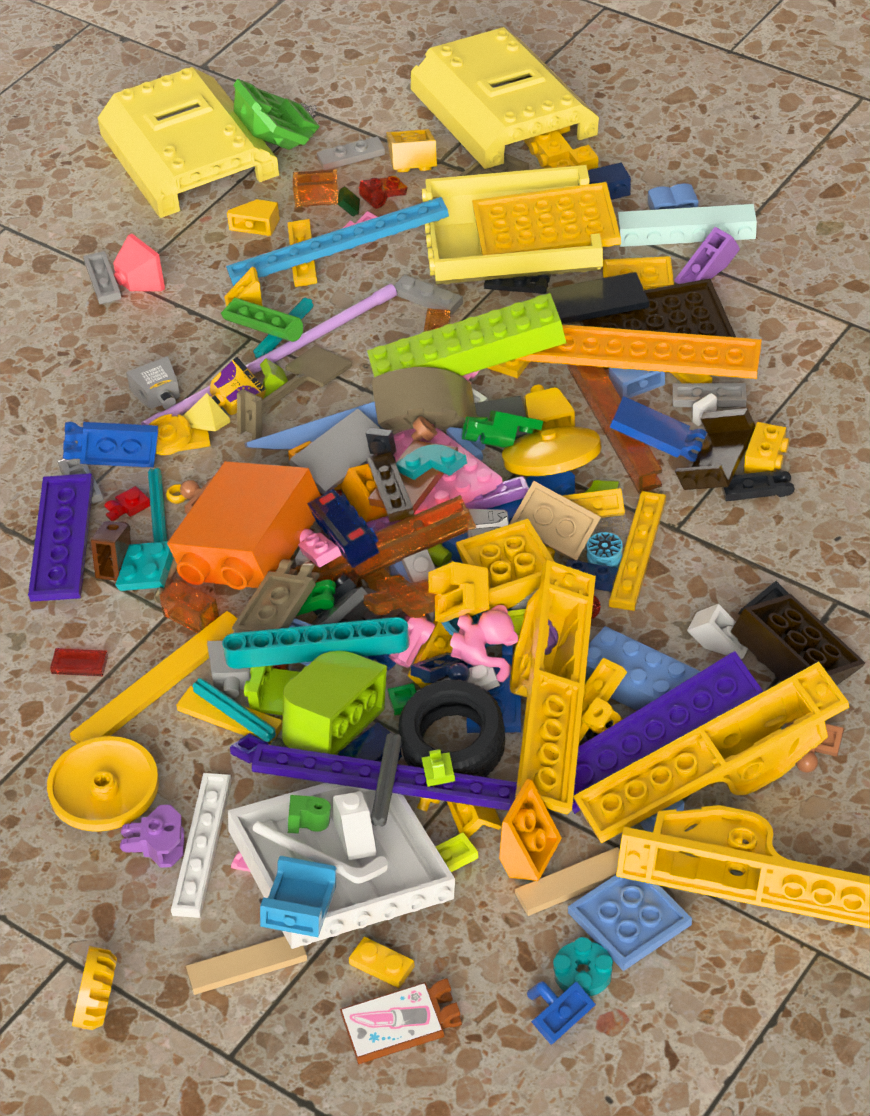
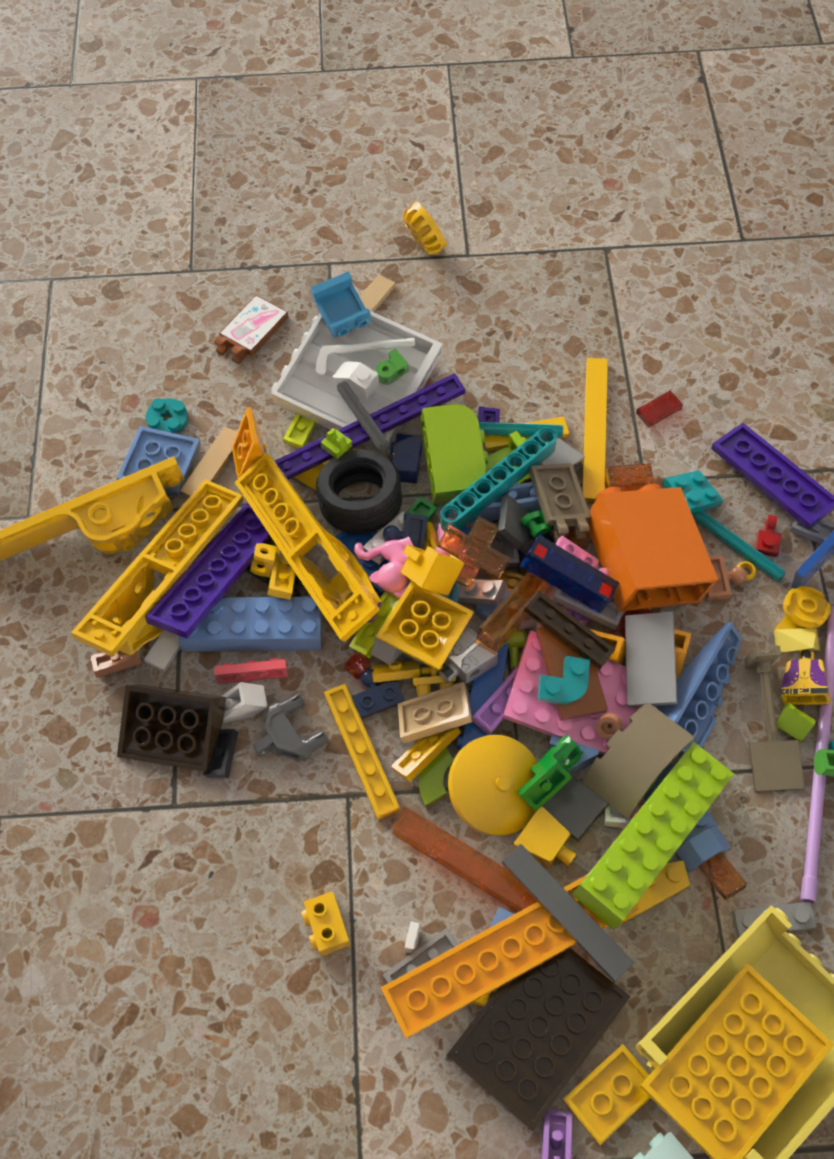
camera: 140 degrees right, 15 degrees up
(103, 783) = (547, 336): yellow dish -> none
(110, 542) = (730, 484): reddish brown torso -> none
(156, 836) = (482, 329): medium lavender hinge -> none
(201, 845) = (459, 352): white tile -> none
(380, 441) = (616, 669): black plate -> none
(381, 962) = (281, 352): yellow plate -> none
(562, 1010) = (157, 381): blue plate -> none
(579, 340) = (568, 913): none -> dark grey tile
(599, 298) = (610, 1015): black tile -> none
(604, 551) = (382, 725): medium azure wheel -> none
(657, 429) = (431, 869): blue tile -> none
(683, 649) = (251, 671): none -> coral plate
(700, 589) = (281, 735): none -> dark grey connector
(721, 451) = (361, 886): dark brown panel -> none
(759, 485) = (310, 878): black hinge -> none

